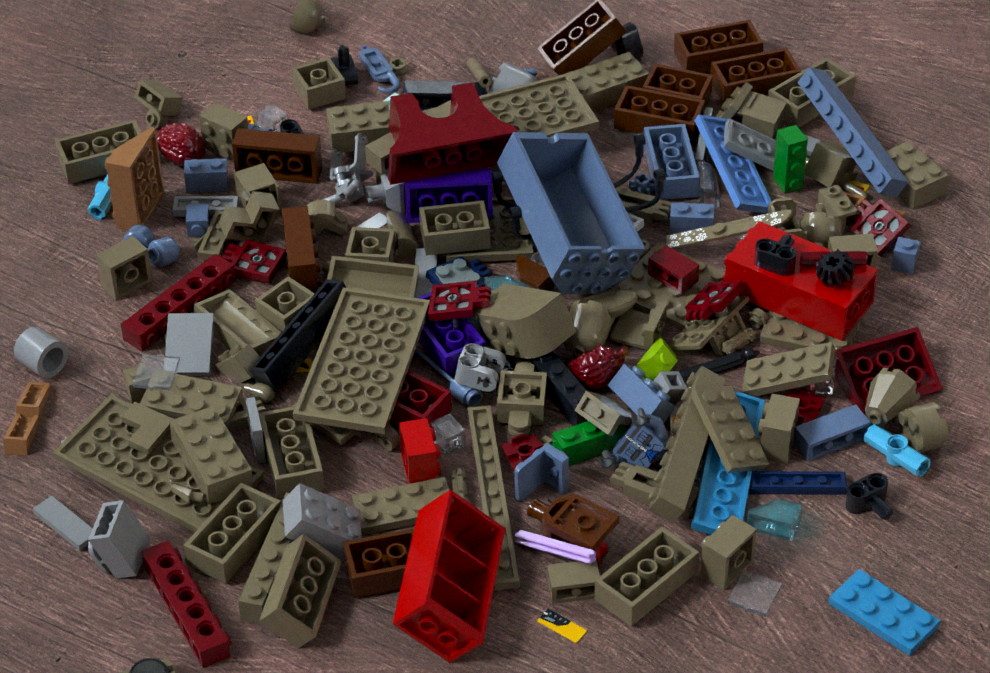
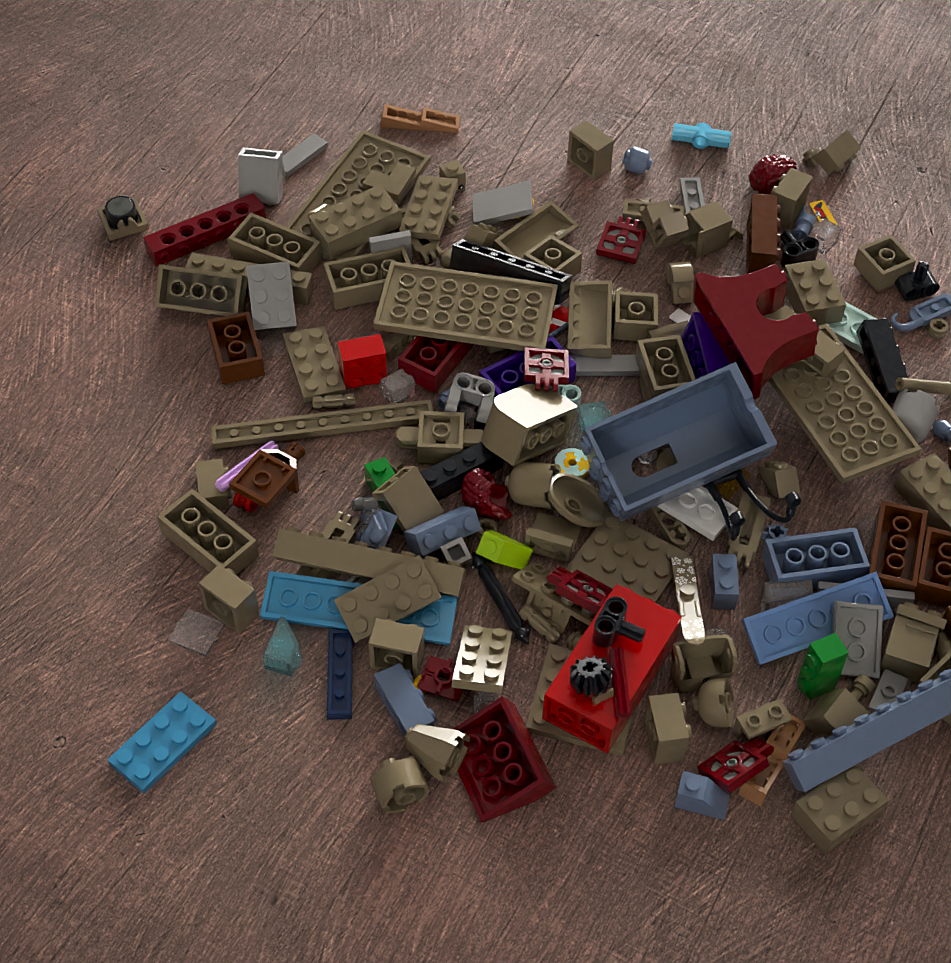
camera: 85 degrees right, 10 degrees up
(41, 352) = (483, 112): light grey piece -> none
(85, 153) = (750, 122): dark tan brick -> none
(135, 179) = (691, 135): medium nougat slope -> none
(156, 372) = (449, 176): clear piece -> none
(163, 251) = (624, 177): sand blue head -> none
(197, 219) = (670, 191): sand blue brick -> none
(201, 283) = (572, 199): dark red brick -> none
(206, 175) = (732, 195): sand blue brick -> none
(301, 247) = (627, 261): reddish brown brick -> none
(449, 576) = (198, 380): red container -> none
(458, 271) = (613, 386): piece -> none
(517, 446) = (366, 446): dark red piece -> none
(543, 466) = (340, 452): sand blue bracket -> none
(561, 625) = (170, 482): yellow sticker -> none
(673, 269) = (629, 557): dark red brick -> none
(869, 494) = (311, 734): black beam -> none
(897, 450) = (359, 774): medium azure piece -> none

